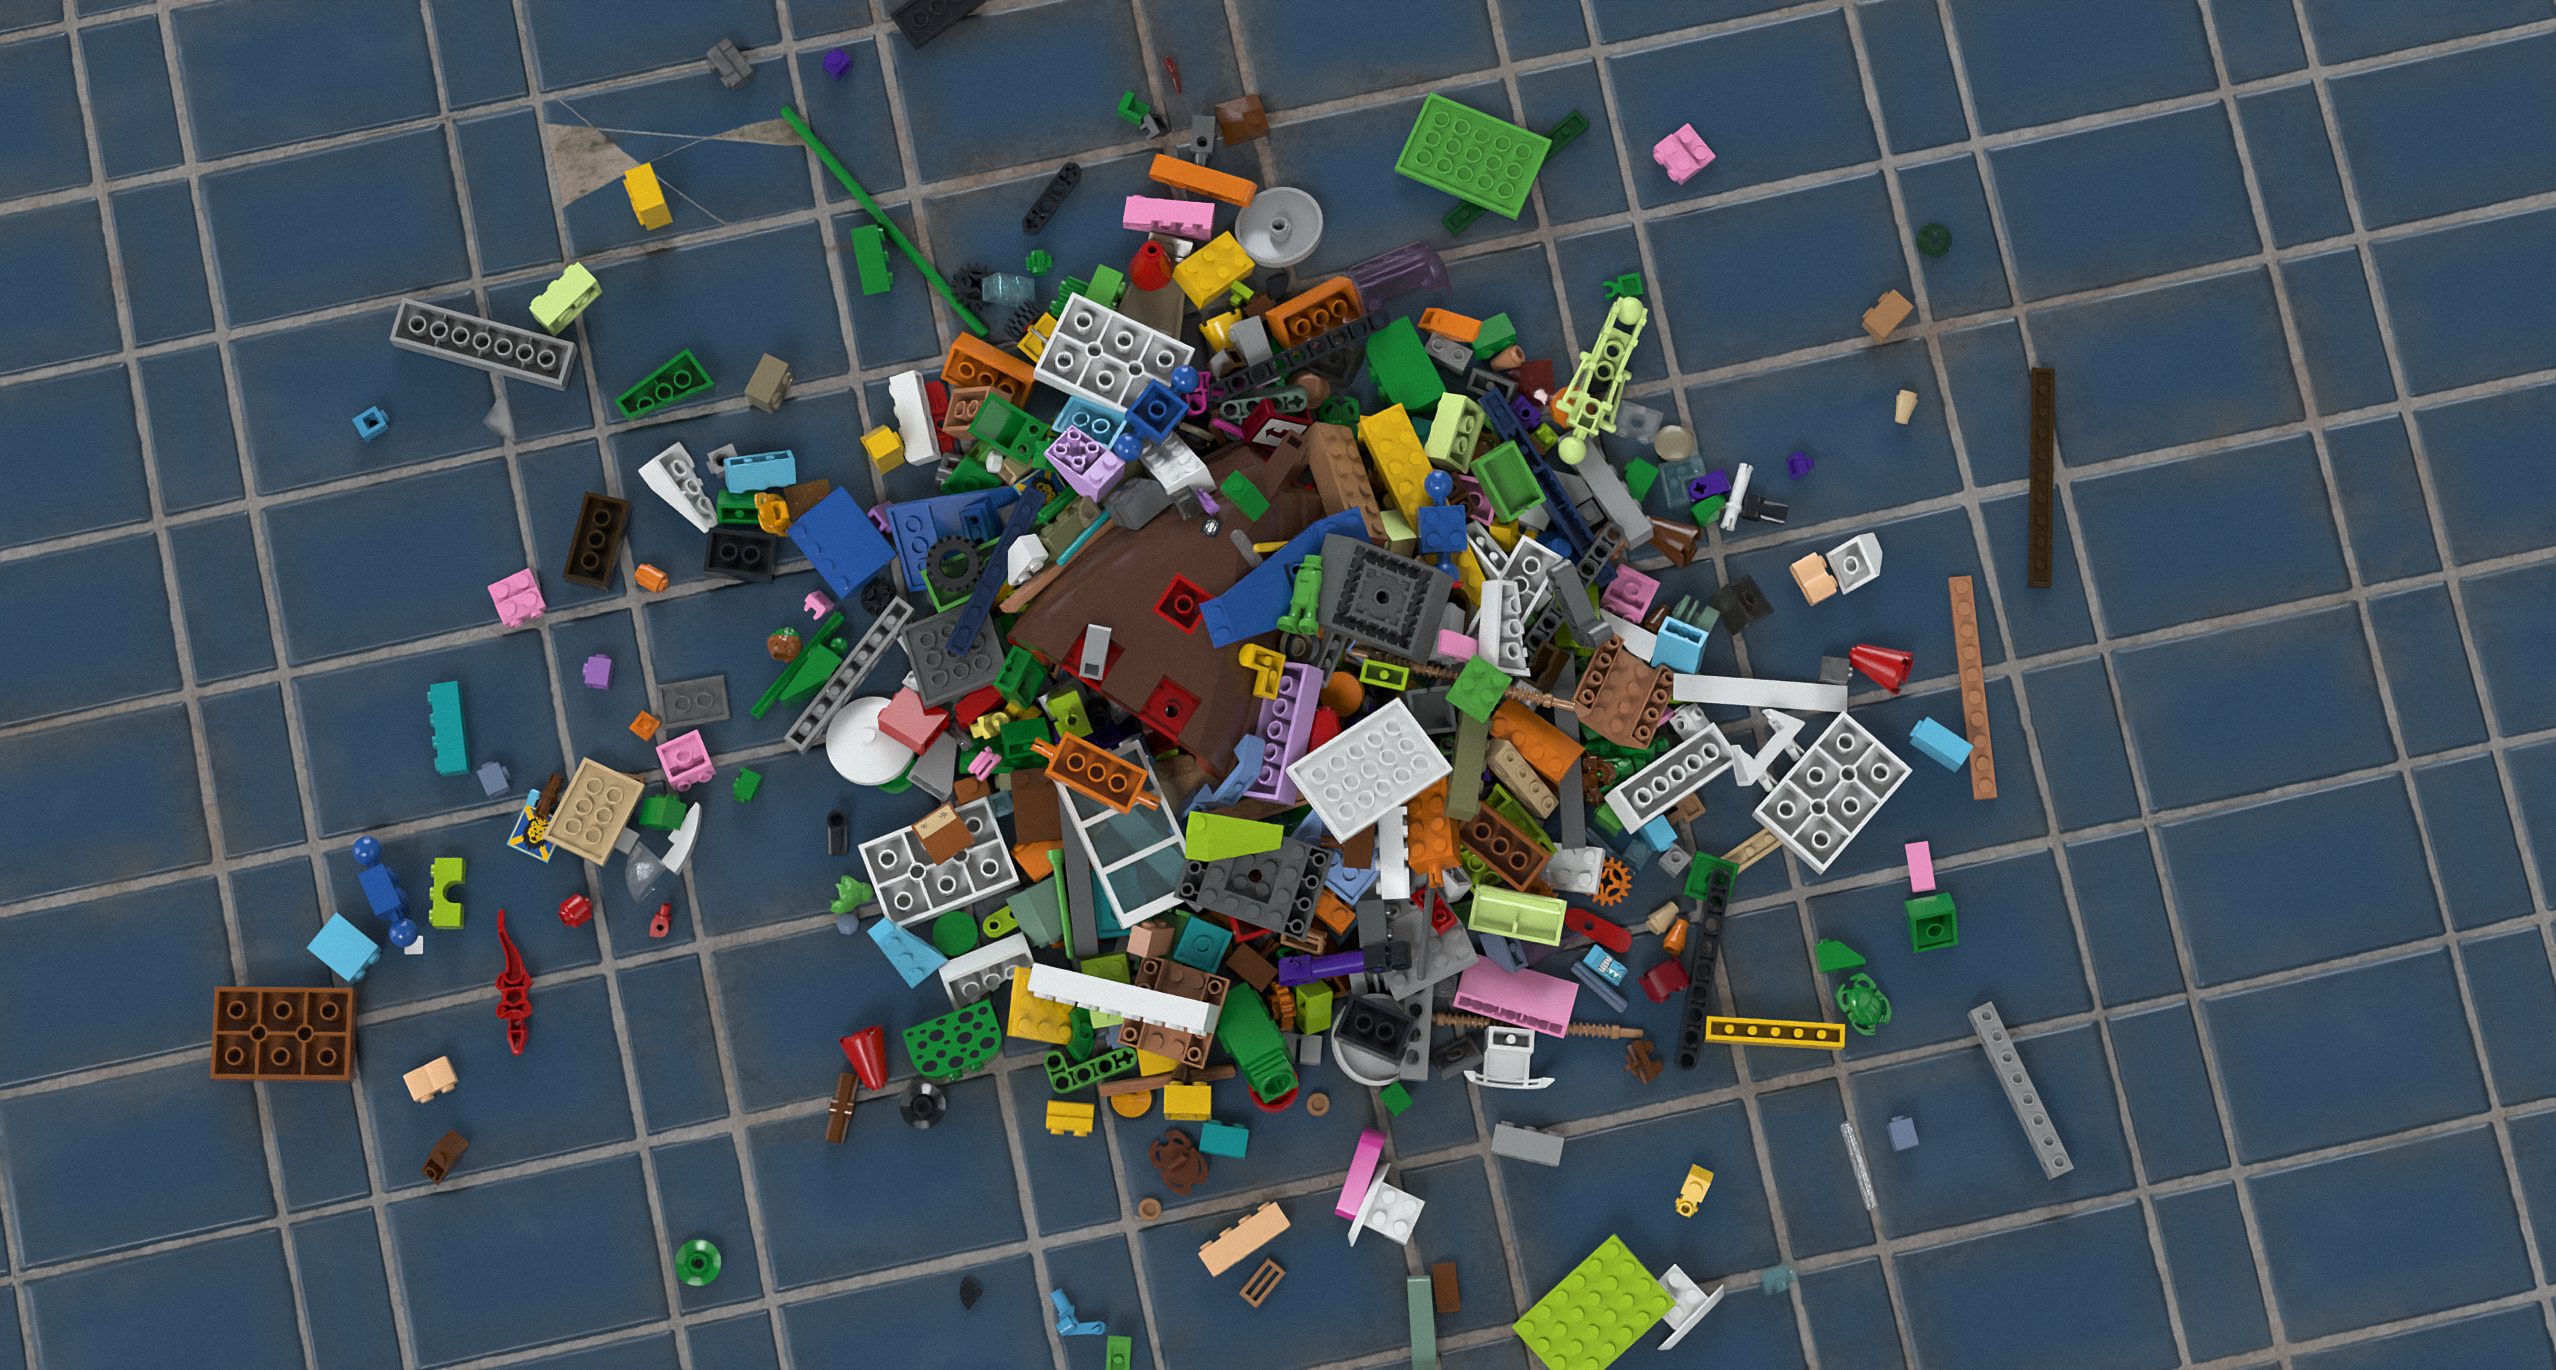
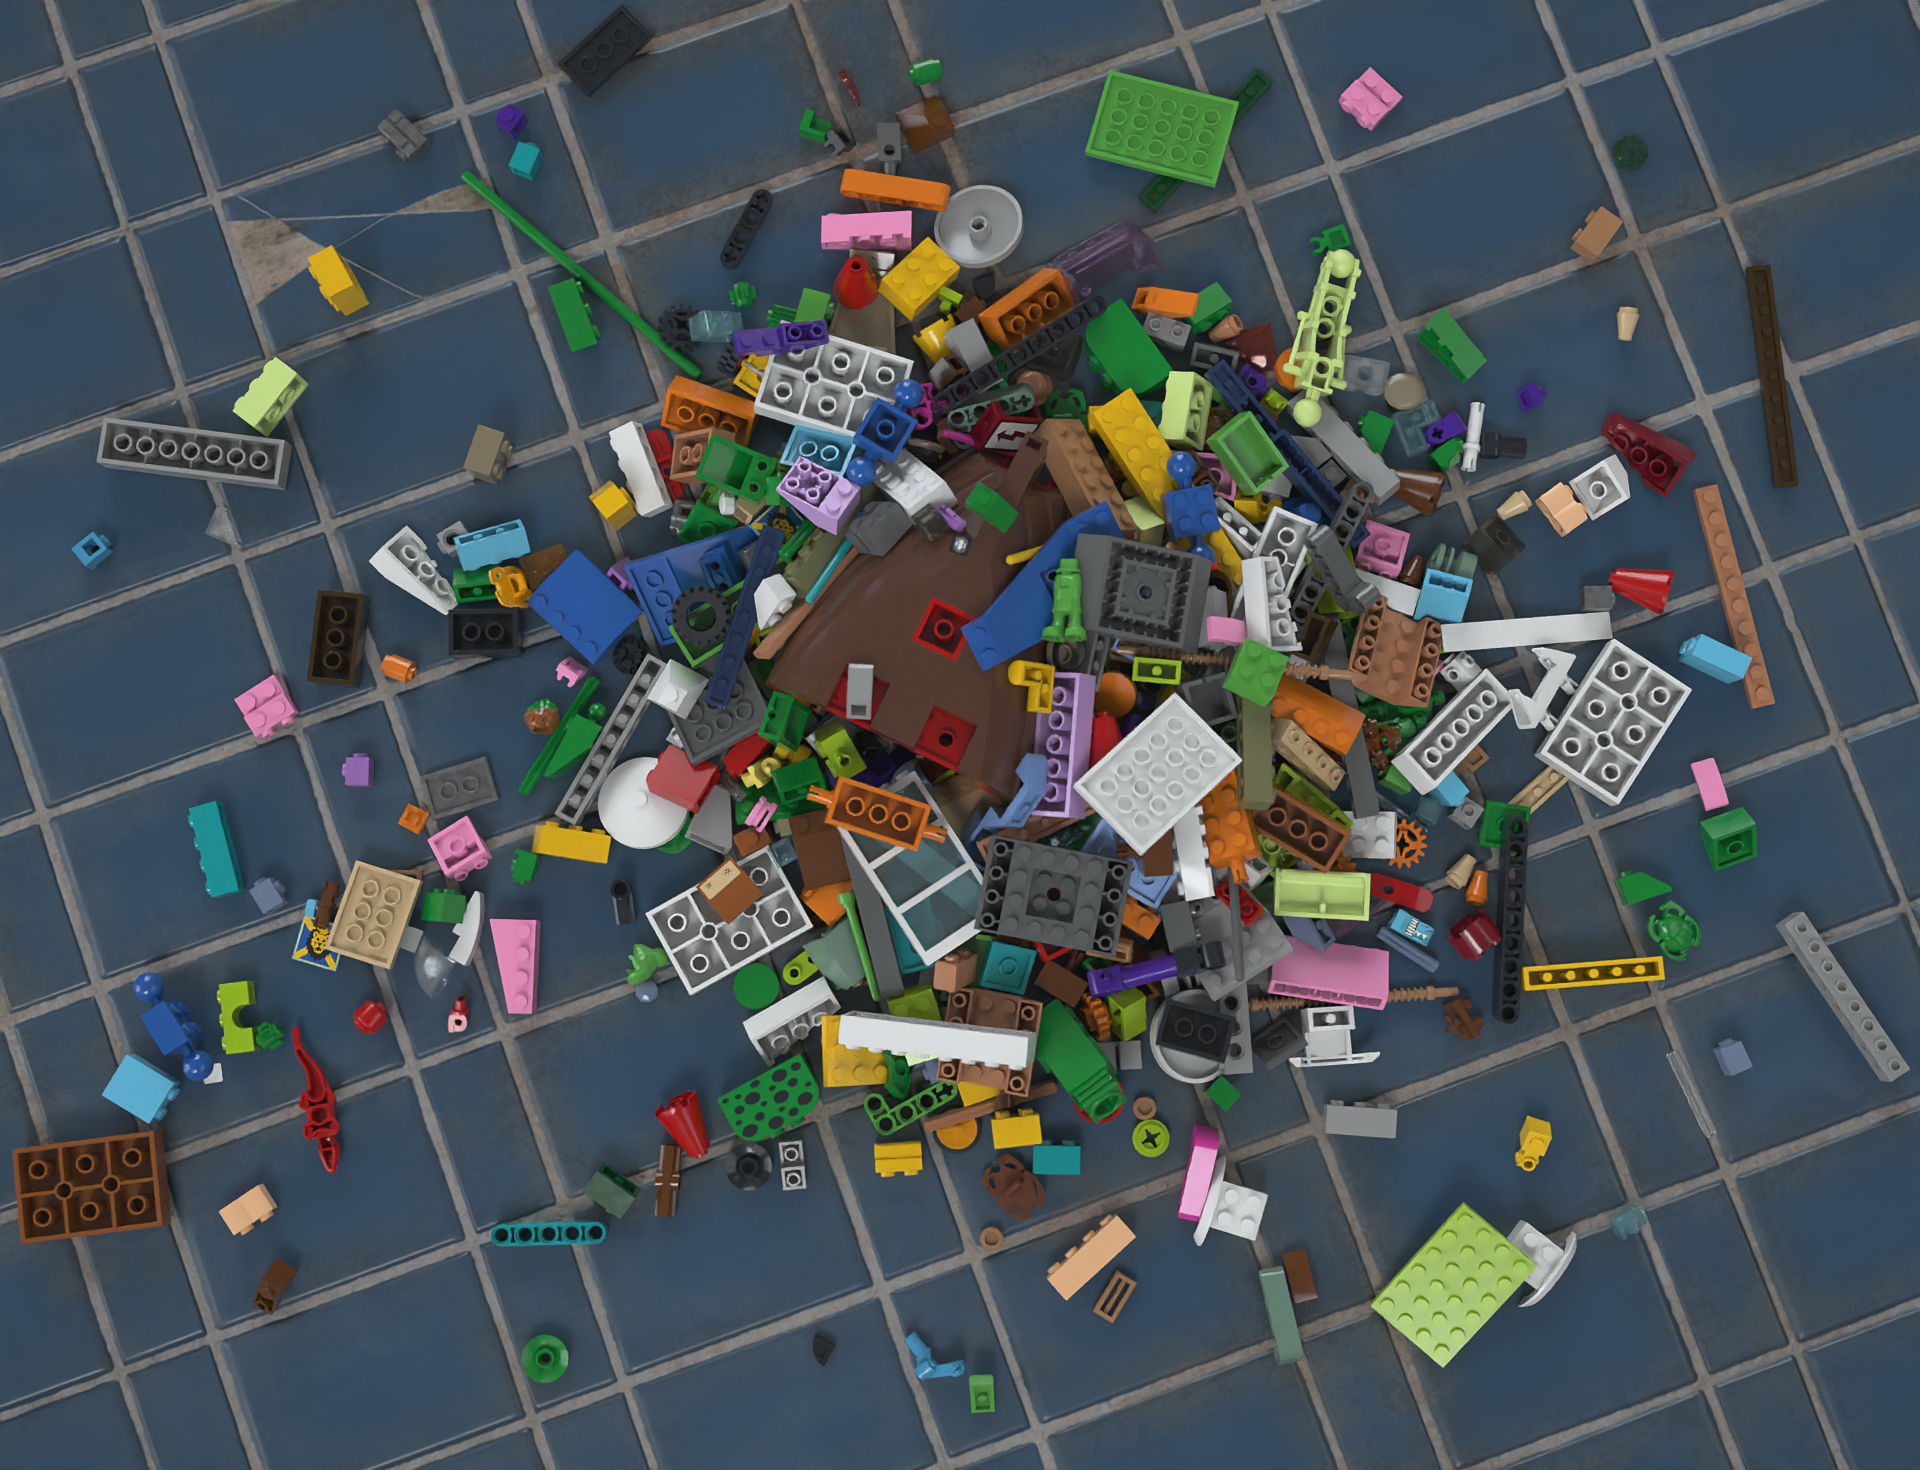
camera: 10 degrees left, 5 degrees up
(476, 914) = (269, 1035): none -> green gear
(666, 386) = (384, 472): green wedge -> none
(709, 1138) = (538, 1233): none -> teal beam
(728, 872) = (518, 960): none -> bright pink wedge
(785, 1109) = (611, 1190): none -> dark green brick
(795, 769) = (571, 842): none -> yellow wedge
(846, 103) = (526, 160): none -> teal brick
(907, 953) = (710, 1015): medium azure wedge -> none
(920, 633) = (677, 689): none -> white slope
(966, 1110) = (792, 1164): none -> light grey slope
(1069, 310) = (781, 339): none -> dark purple slope
(1088, 511) = (829, 543): dark tan tile -> none
(1223, 837) = (1018, 862): lime wedge -> none
(1246, 548) = (1000, 561): clear axle -> none
(1249, 69) = (925, 71): none -> green brick
(1324, 1124) = (1161, 1141): none -> lime gear
(1727, 405) = (1451, 346): none -> green wedge
(1767, 569) = (1514, 505): none -> tan cone
(1912, 538) = (1653, 455): none -> dark red wedge

